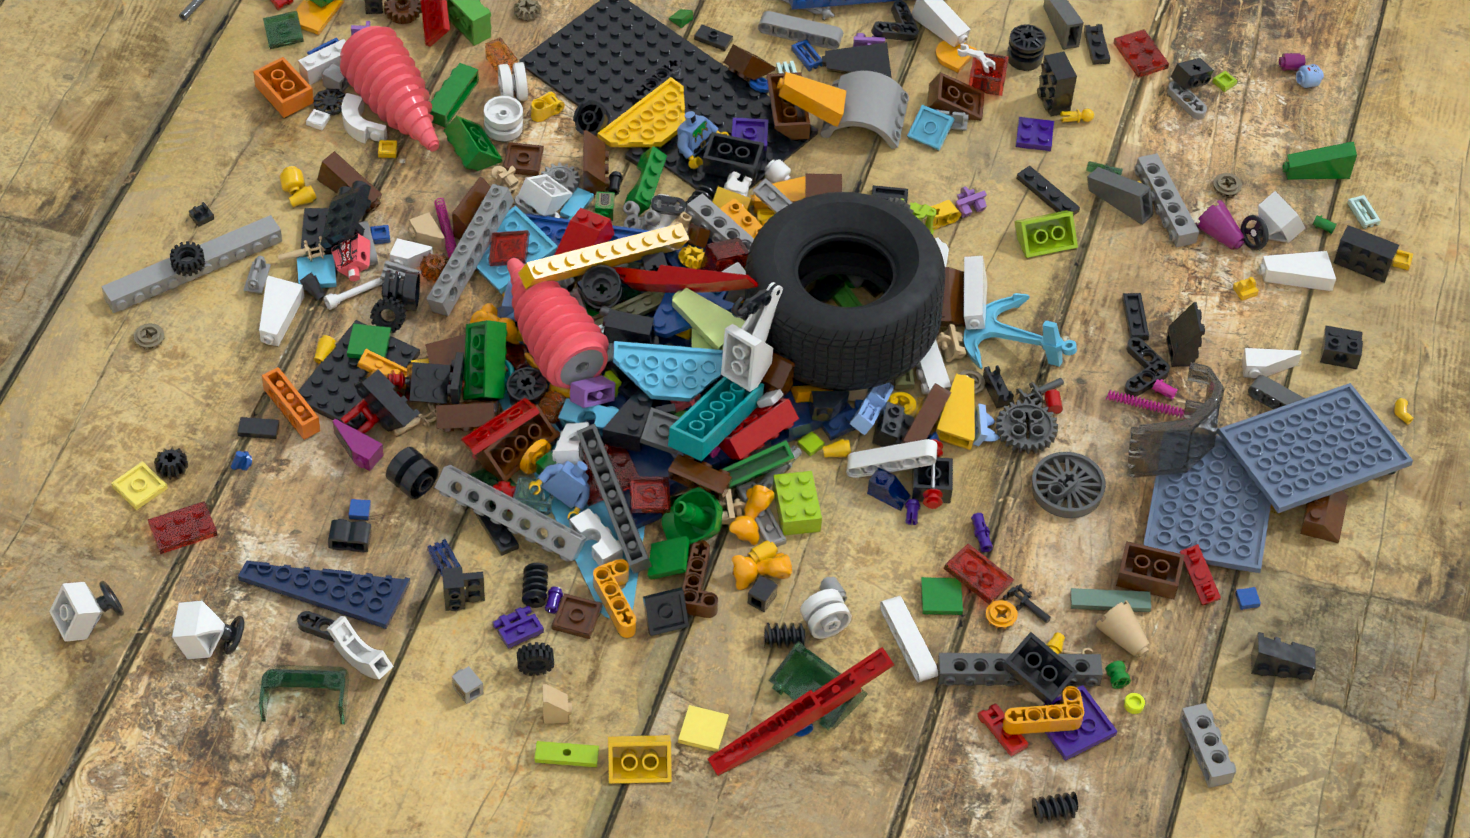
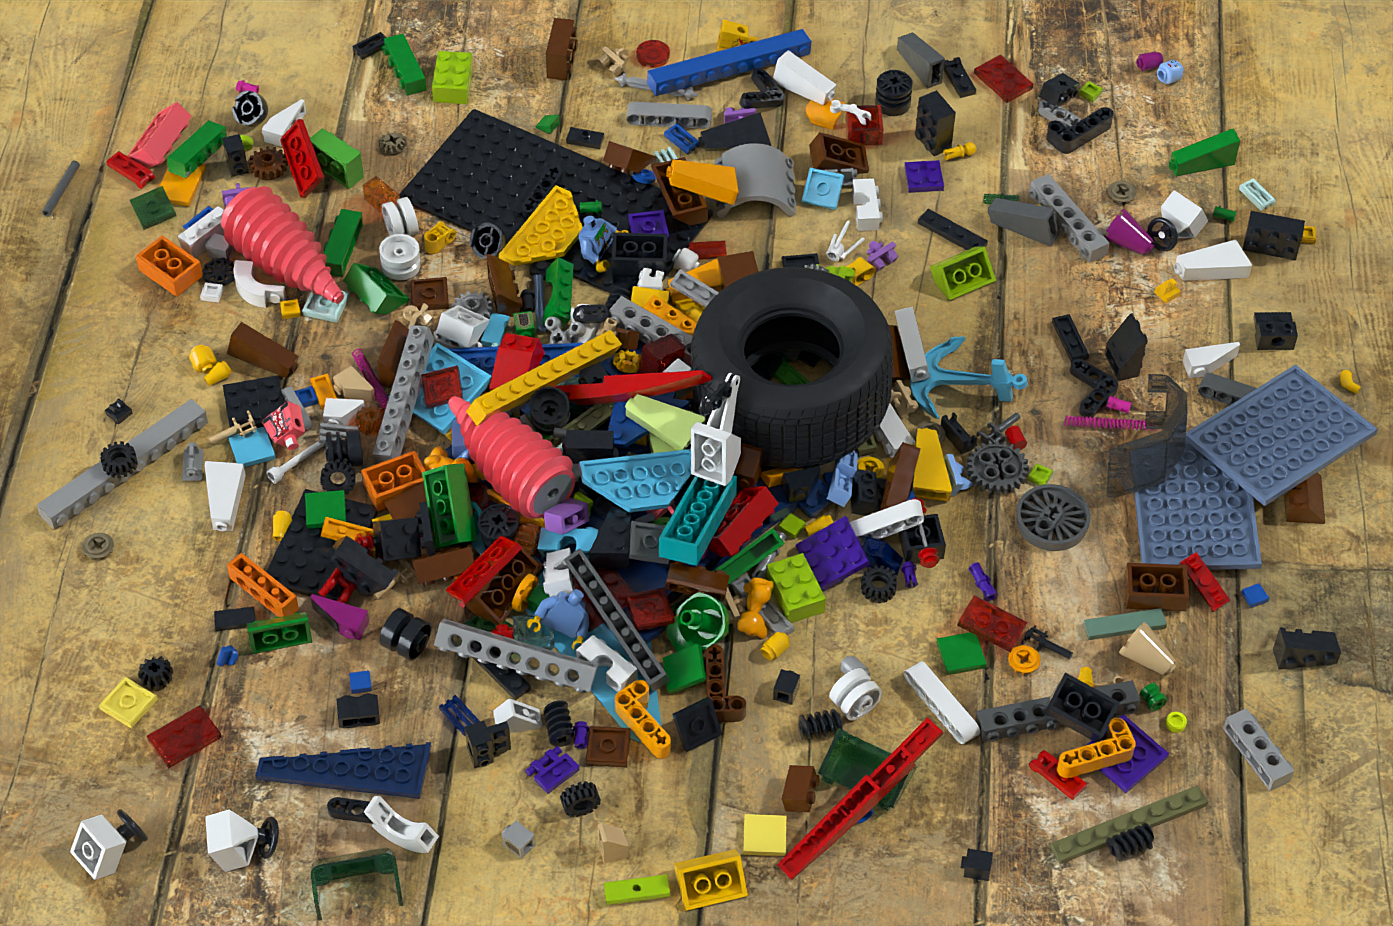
camera: 10 degrees left, 0 degrees up
(295, 448) = (279, 632): none -> green slope
(312, 286) = (252, 463): black cone -> none
(345, 213) = (269, 382): black piece -> none
(398, 229) = (323, 389): none -> light orange tile
(419, 155) = (321, 308): none -> light aqua tile
(439, 324) = (392, 477): none -> orange brick
(498, 570) = (518, 716): none -> white slope
(626, 185) = (539, 302): none -> sand blue axle
(699, 104) = (591, 207): none -> green pin
(746, 570) = (765, 665): light orange animal -> none
(748, 691) = (800, 788): none -> reddish brown brick
(769, 398) = (745, 489): white tile -> none
(803, 165) = (708, 249): none -> clear red tile
(842, 477) = (833, 553): none -> dark purple plate
(879, 506) = (879, 574): none -> black tyre
(899, 797) = (977, 864): none -> black brick
(928, 189) = (836, 250): none -> white plant
(970, 140) = (867, 214): none -> white arch
(1067, 442) = (1040, 475): none -> lime tile
(1083, 786) = (1152, 814): none -> olive plate
(1201, 120) = (1069, 139): none -> black beam

